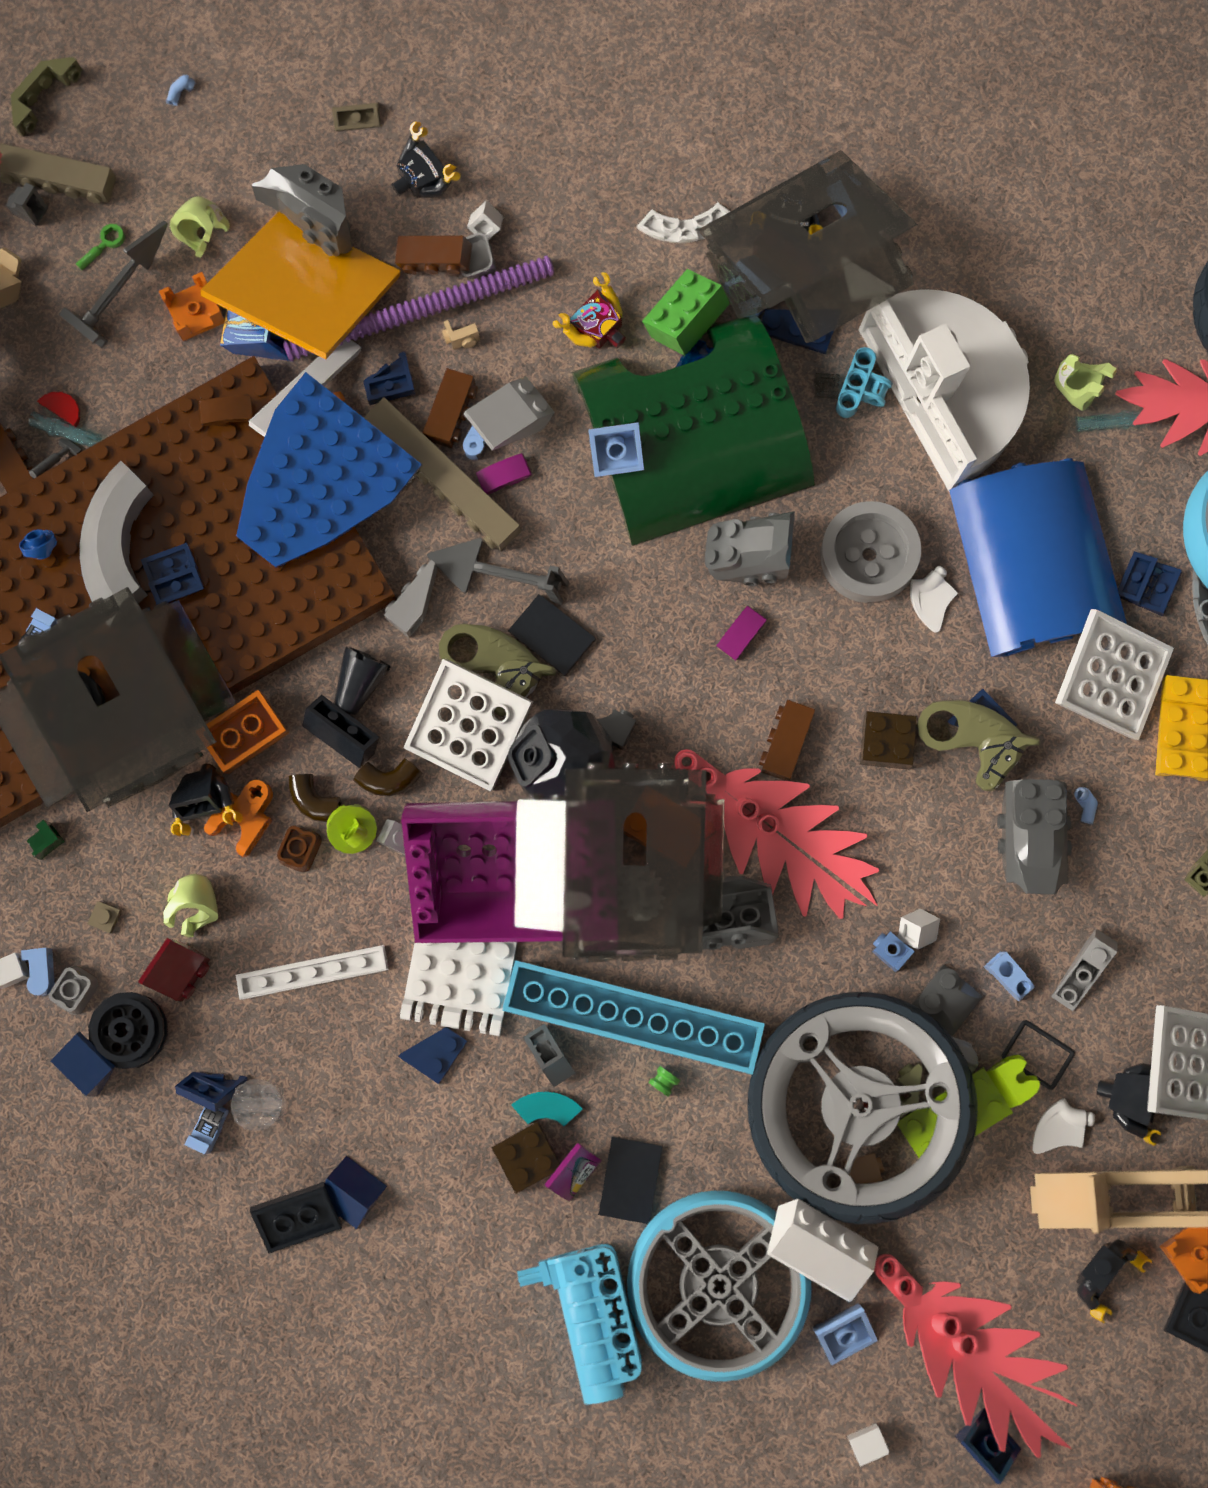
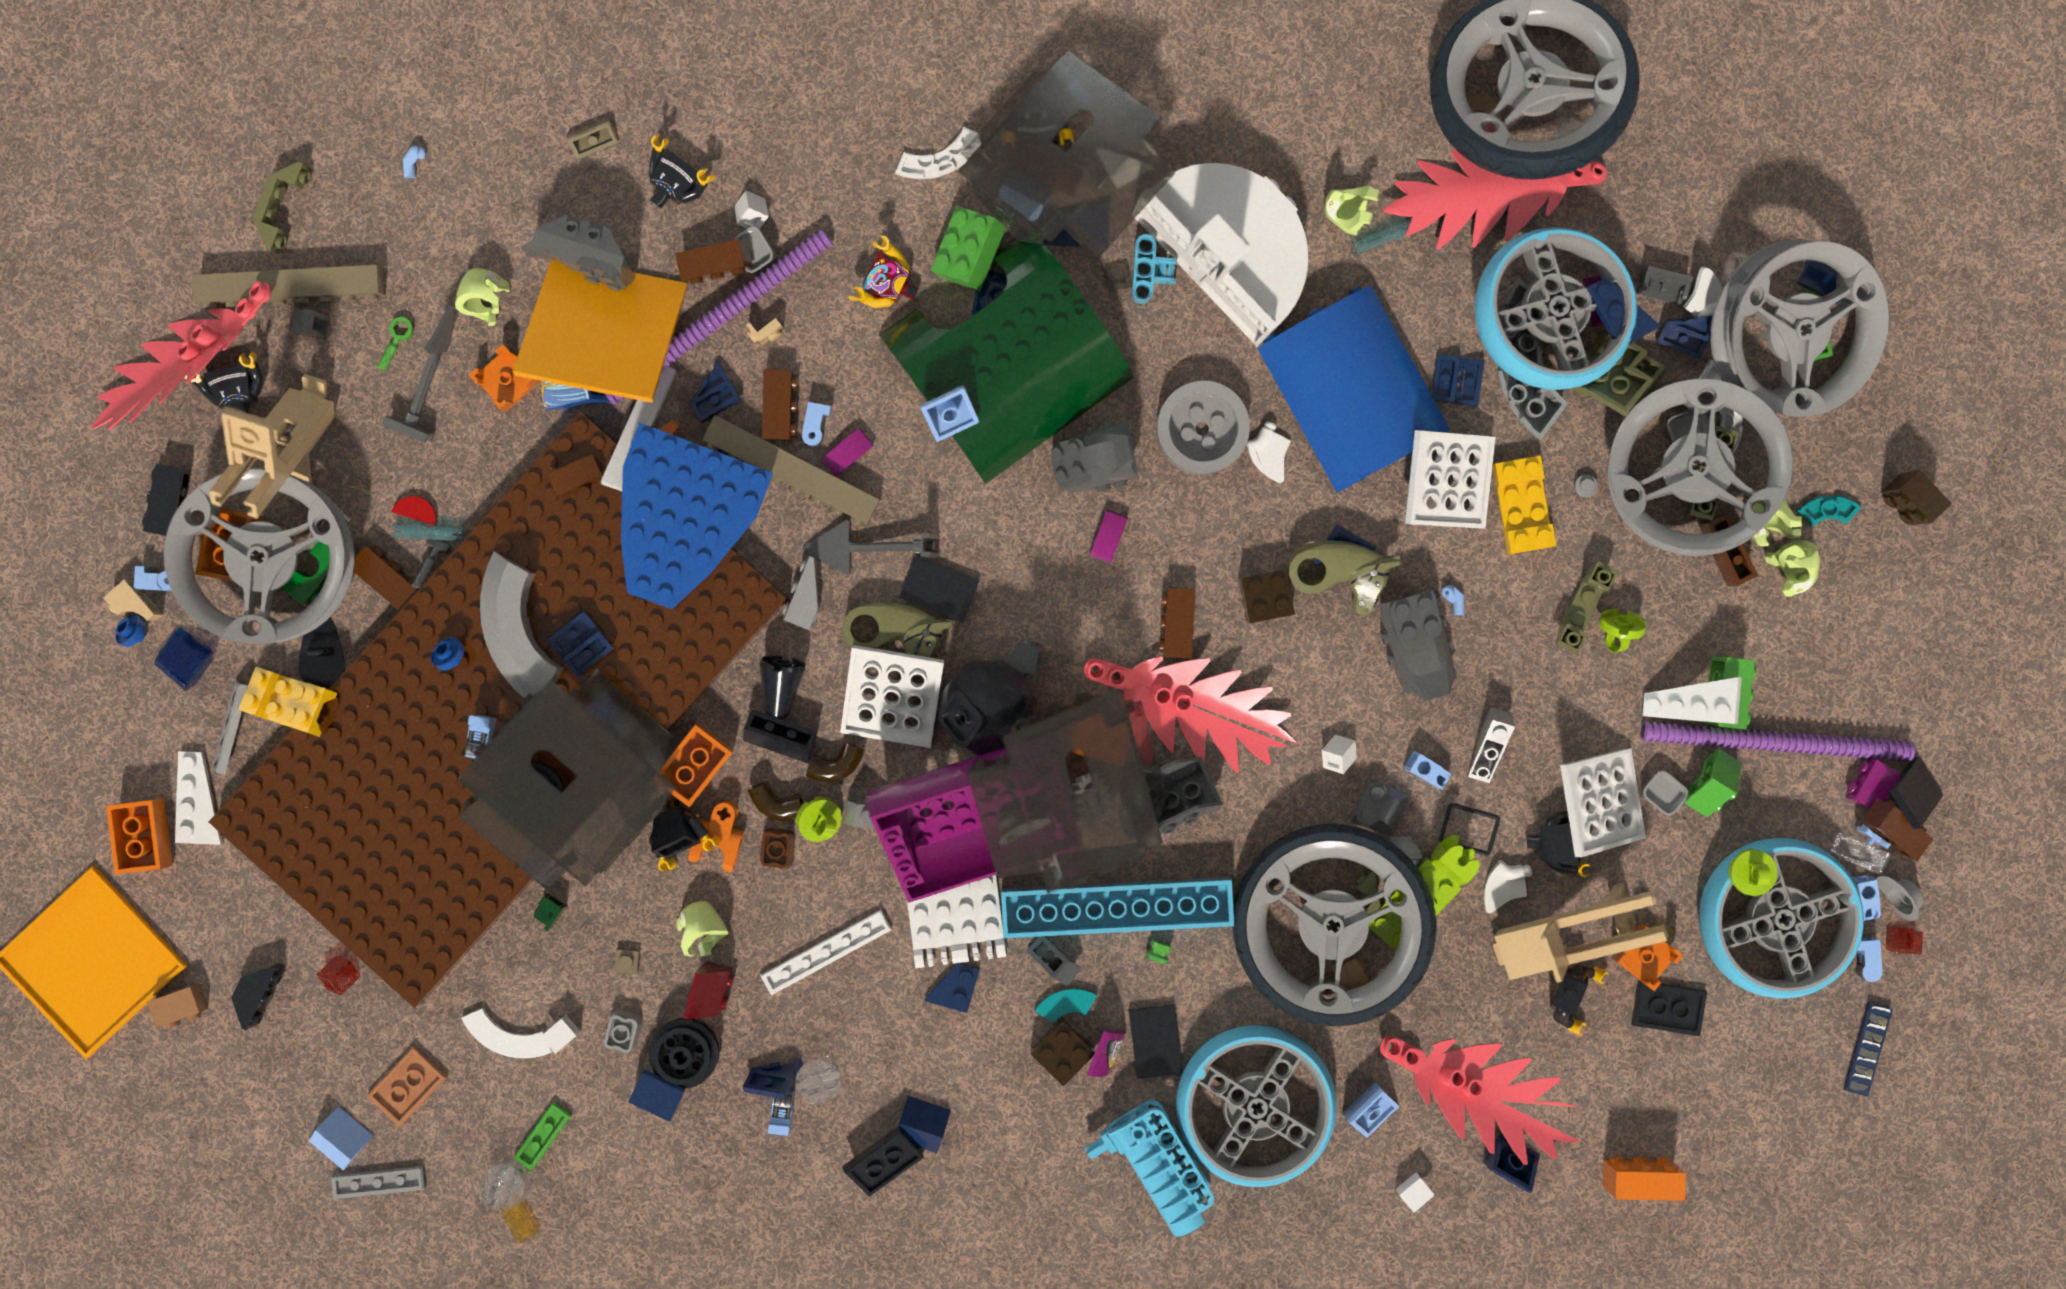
camera: 25 degrees left, 10 degrees up
(40, 969) = (588, 1024): light blue leg -> none
(510, 414) = (836, 397): light grey slope -> none
(821, 1249) = (1334, 1053): white slope -> none
(896, 960) = (1331, 780): medium blue brick -> none

